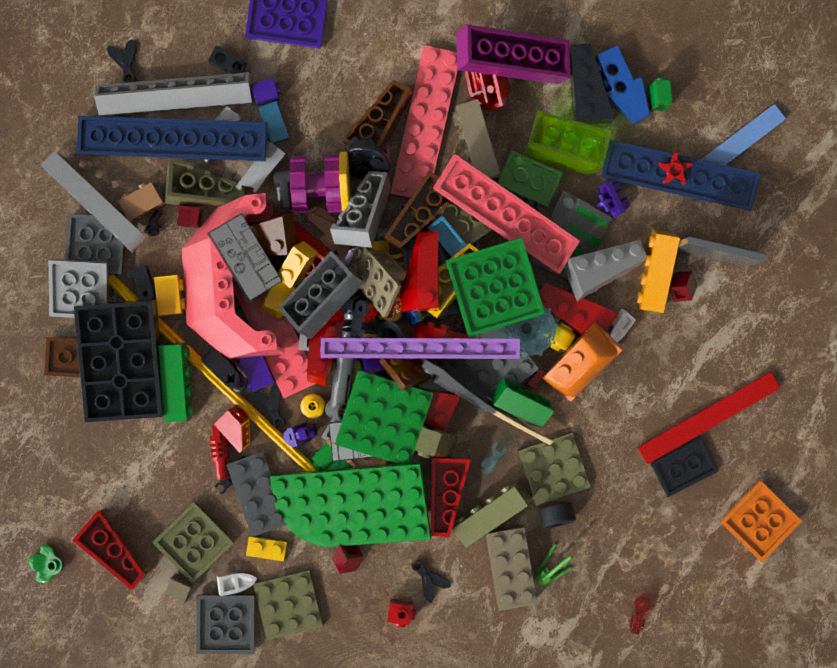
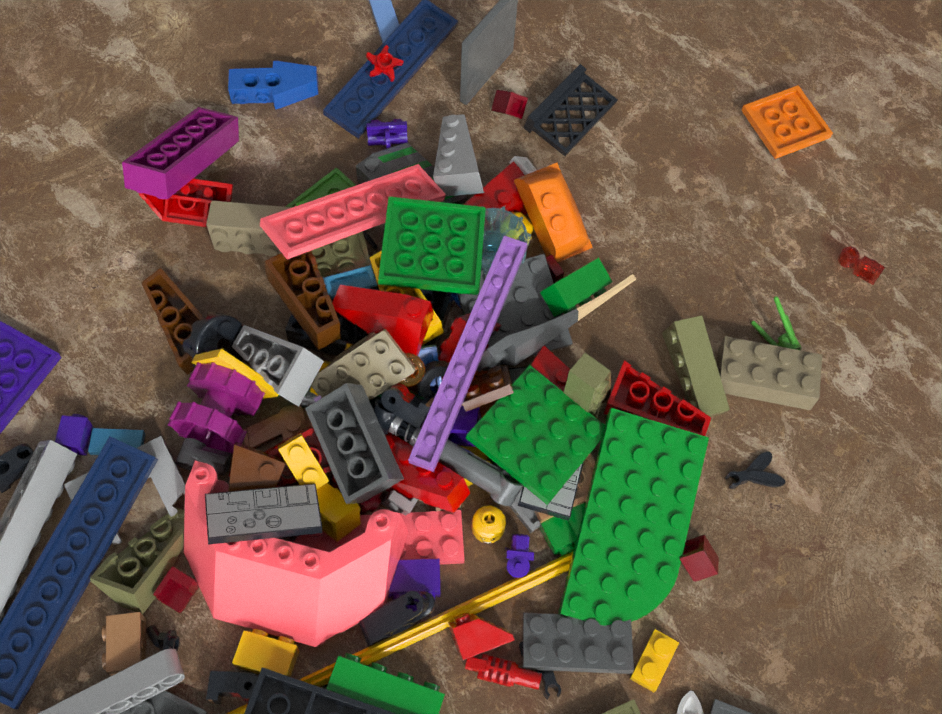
camera: 75 degrees left, 25 degrees down
(270, 405) = (467, 581): black piece -> none
(288, 604) = (739, 661): olive plate -> none
(401, 613) = (789, 519): red brick -> none
(425, 119) = (208, 277): coral plate -> none
(490, 462) = (633, 349): clear light blue plate -> none
(554, 469) = (662, 291): olive plate -> none
(557, 515) = (720, 302): black tyre -> none
(568, 143) = (308, 145): clear neon green windscreen -> none
(587, 89) = (261, 113): black wedge -> none
(658, 270) = (483, 114): light orange wedge -> none
(660, 94) = (300, 47): green brick -> none
(684, 467) = (704, 170): black tile -> none
(698, 323) = (557, 98): none -> black fence
(708, 417) = (659, 134): red tile -> none

